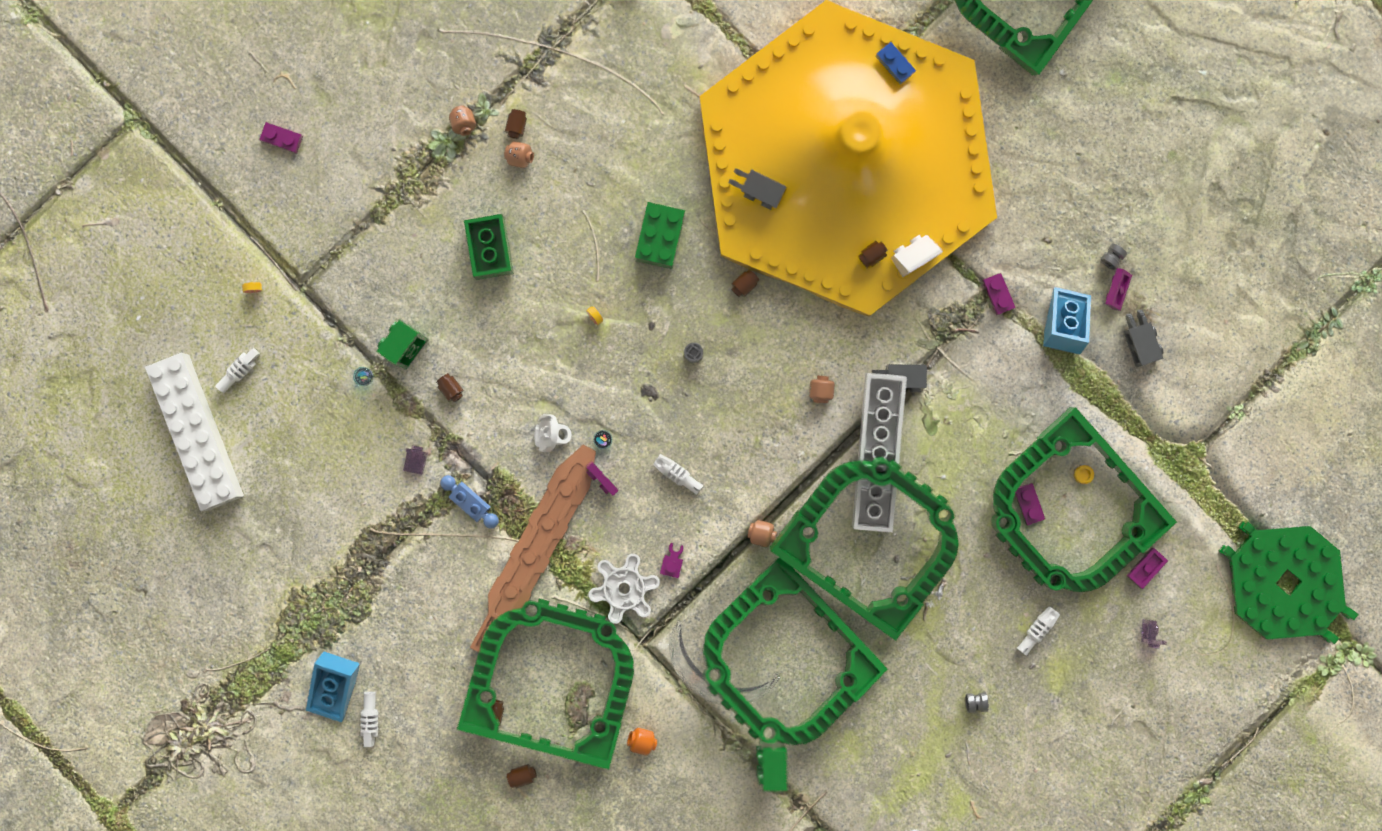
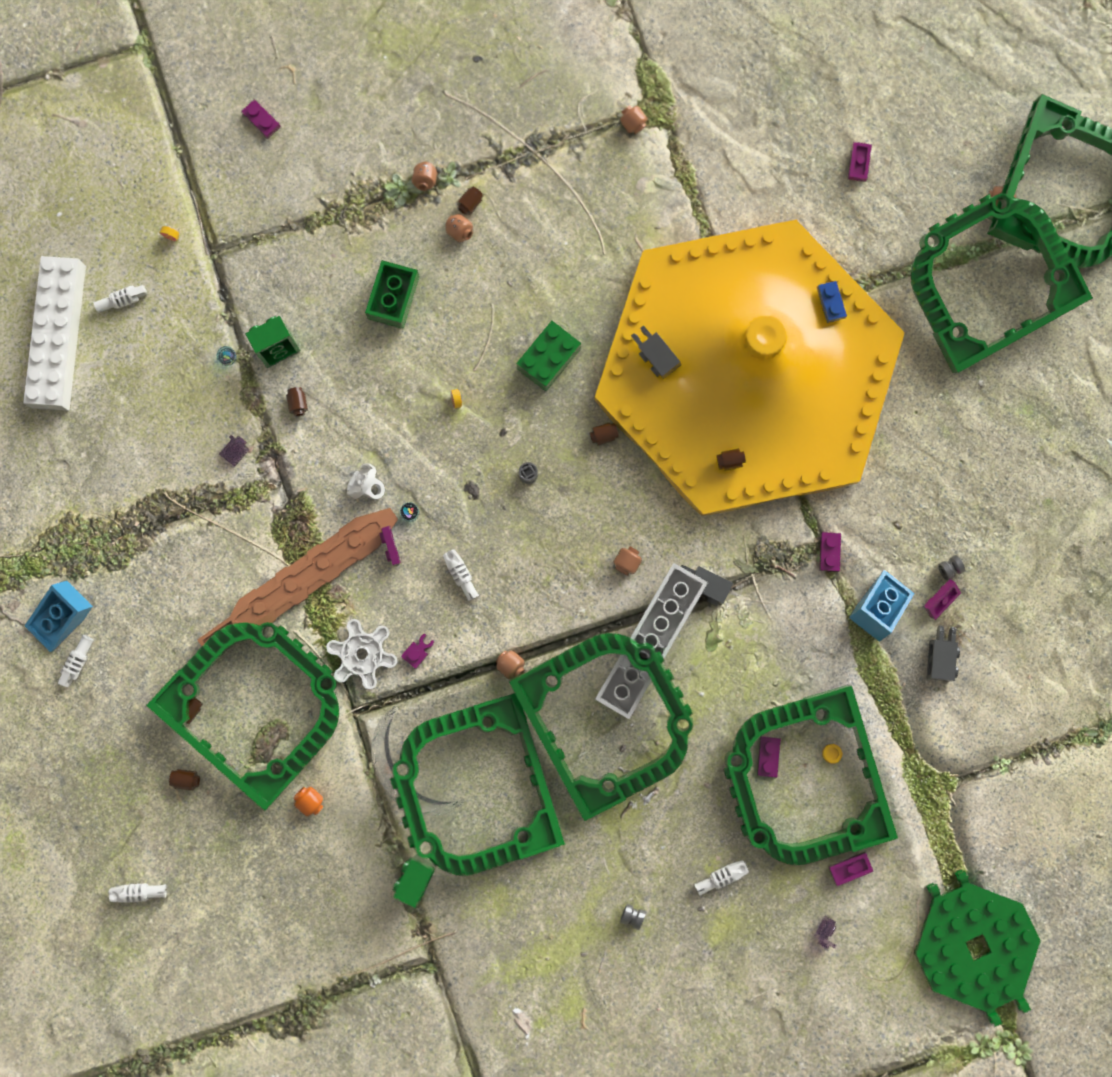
camera: 30 degrees right, 5 degrees down
(469, 501) = (263, 510): medium blue plate -> none
(915, 255) = (768, 478): white slope -> none

